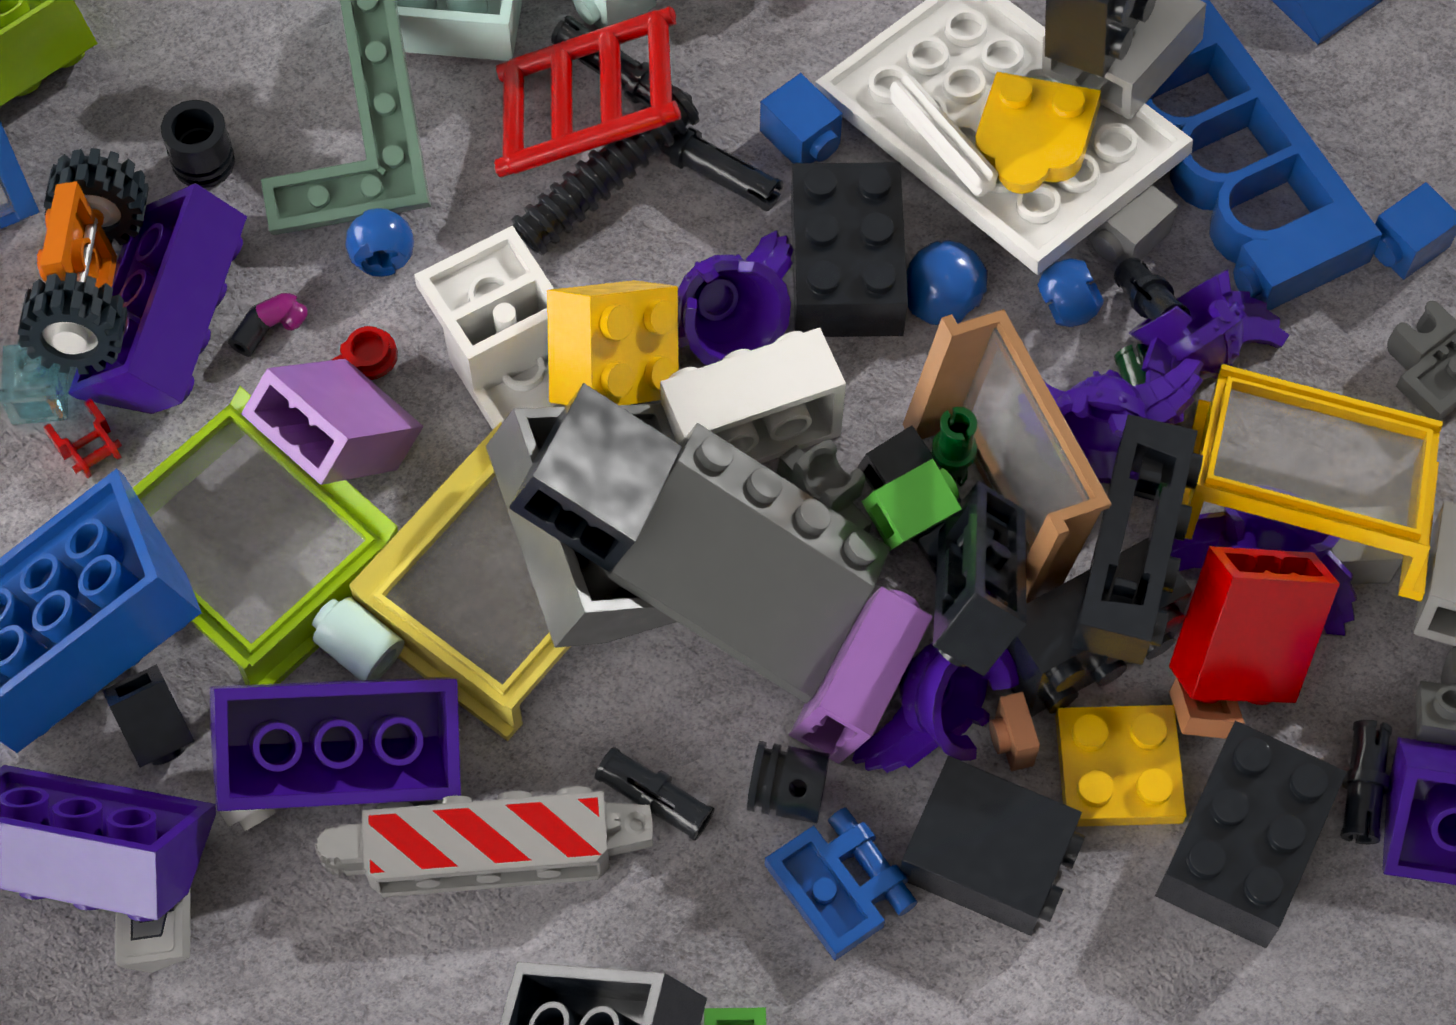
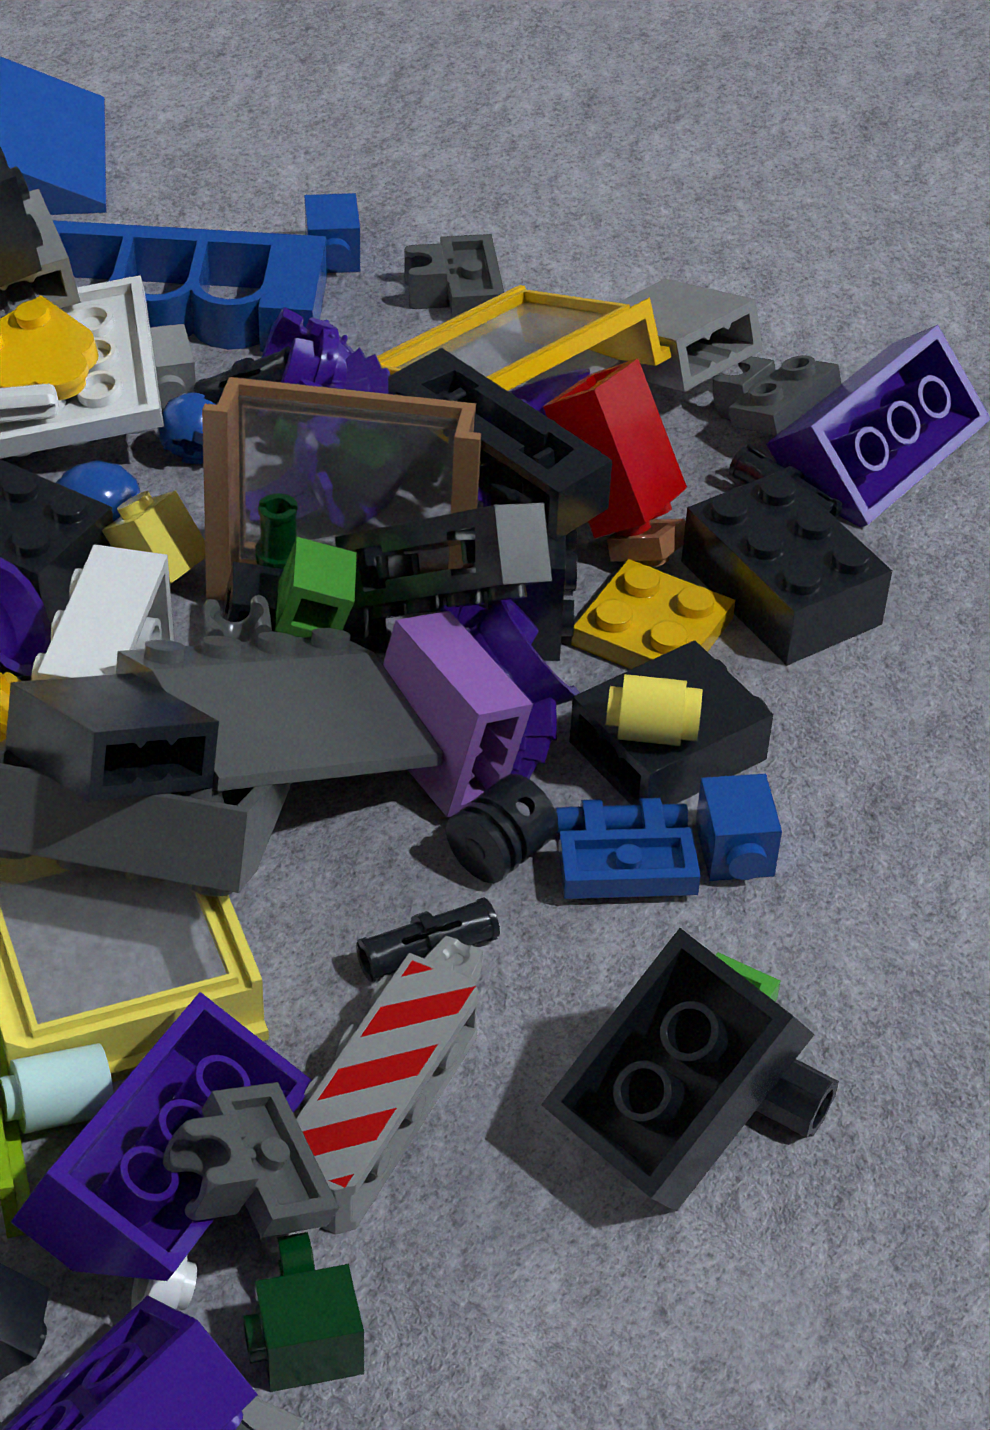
camera: 60 degrees left, 20 degrees down
(273, 913) = (305, 1320): none -> dark green brick
(334, 806) = (253, 1157): none -> dark grey plate
(906, 349) = (158, 527): none -> light yellow brick
(912, 955) = (738, 827): none -> blue brick
(951, 827) = (654, 710): none -> light yellow brick
(1014, 732) = (577, 655): nougat plate -> none

